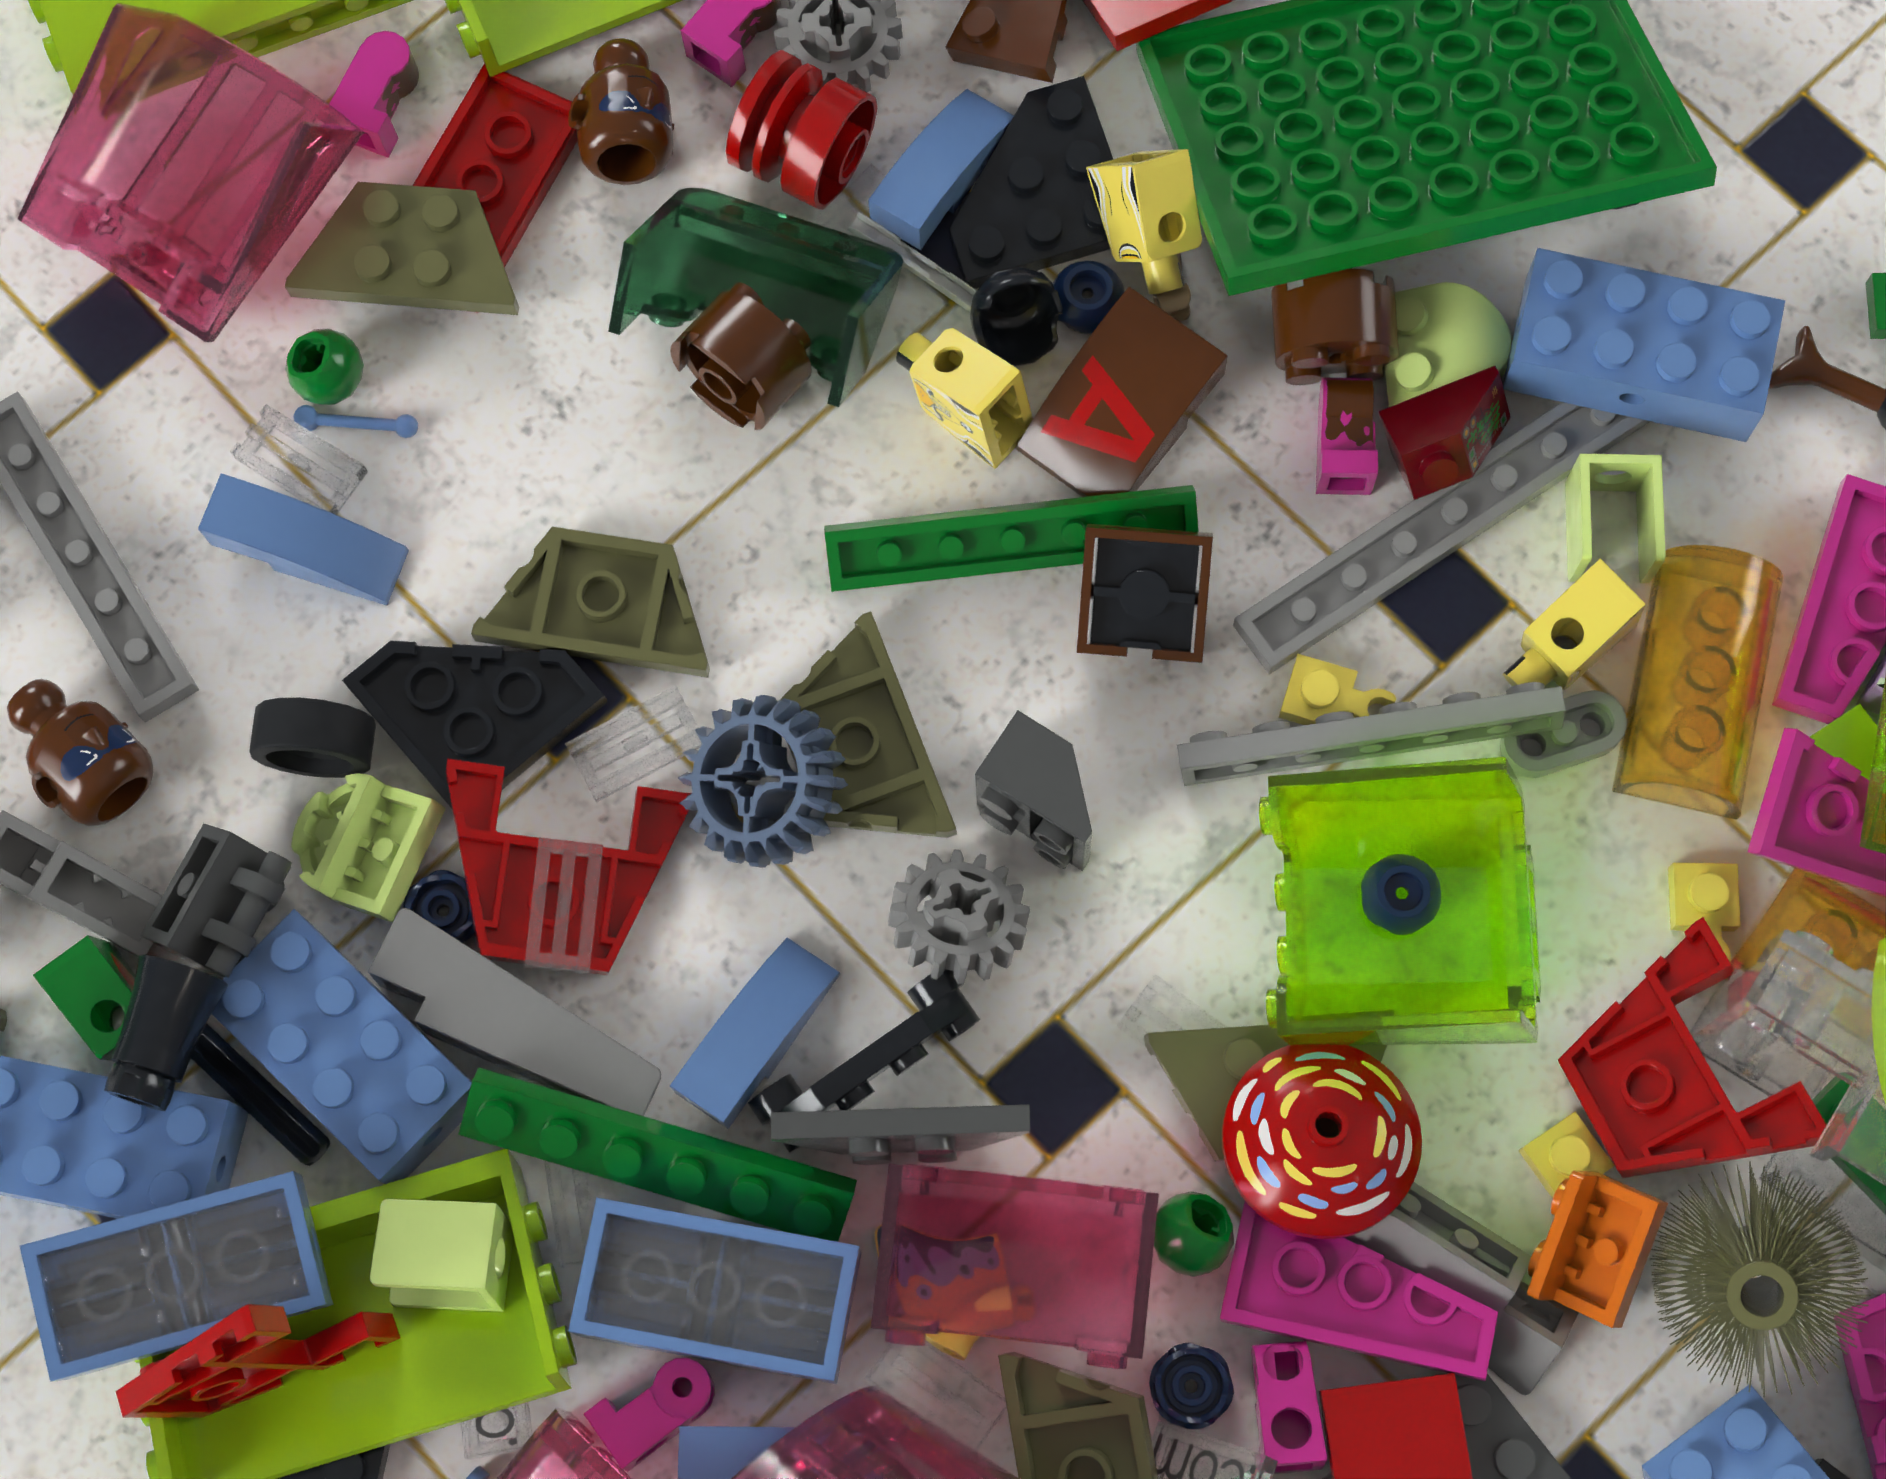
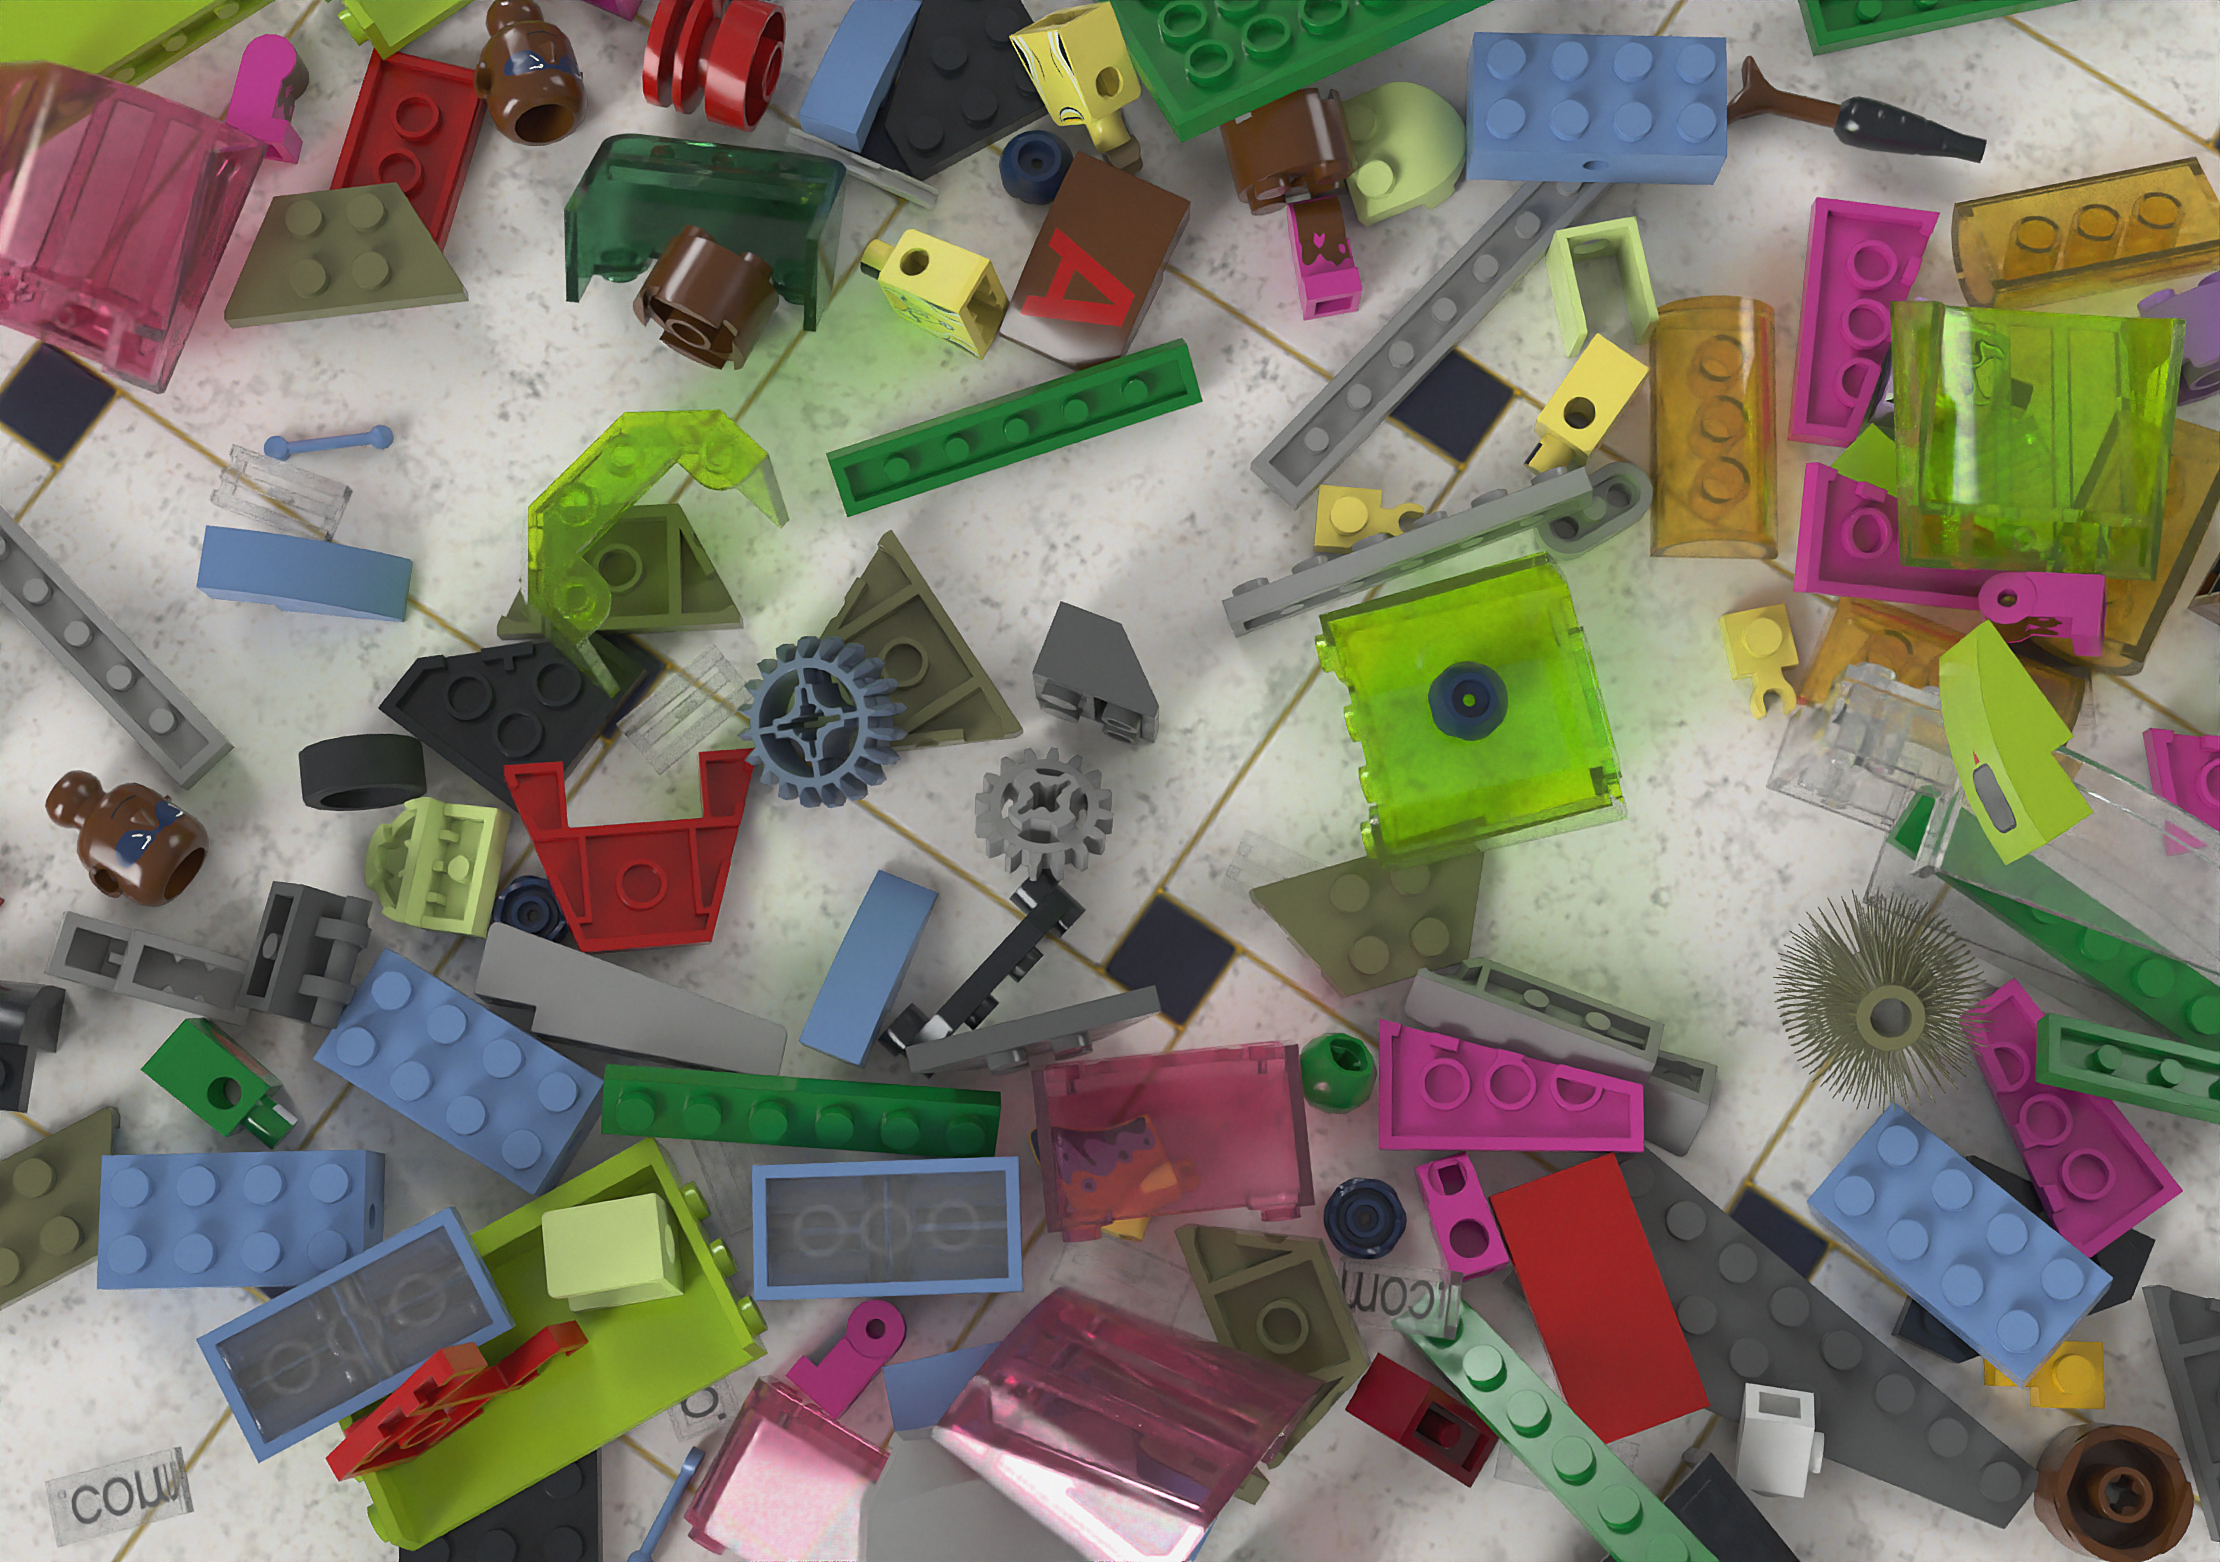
camera: 15 degrees left, 5 degrees up
(161, 1030) = (282, 1096): black plant -> none
(259, 1098) = (385, 1134): black axle -> none
(324, 366) = (284, 394): green piece -> none
(557, 959) = (658, 941): clear tile -> none
(599, 512) = (562, 590): none -> clear neon green windscreen
(1016, 315) = (971, 201): black hair -> none
(1144, 592) = (1158, 454): black piece -> none
(1314, 1181) = (1432, 997): red dish -> none
(1446, 431) = (1420, 233): dark red slope -> none
(1562, 1150) = (1682, 927): light yellow plate -> none
(1595, 1246) = (1722, 1001): orange bracket -> none
(1653, 1087) = (1749, 840): red wing -> none

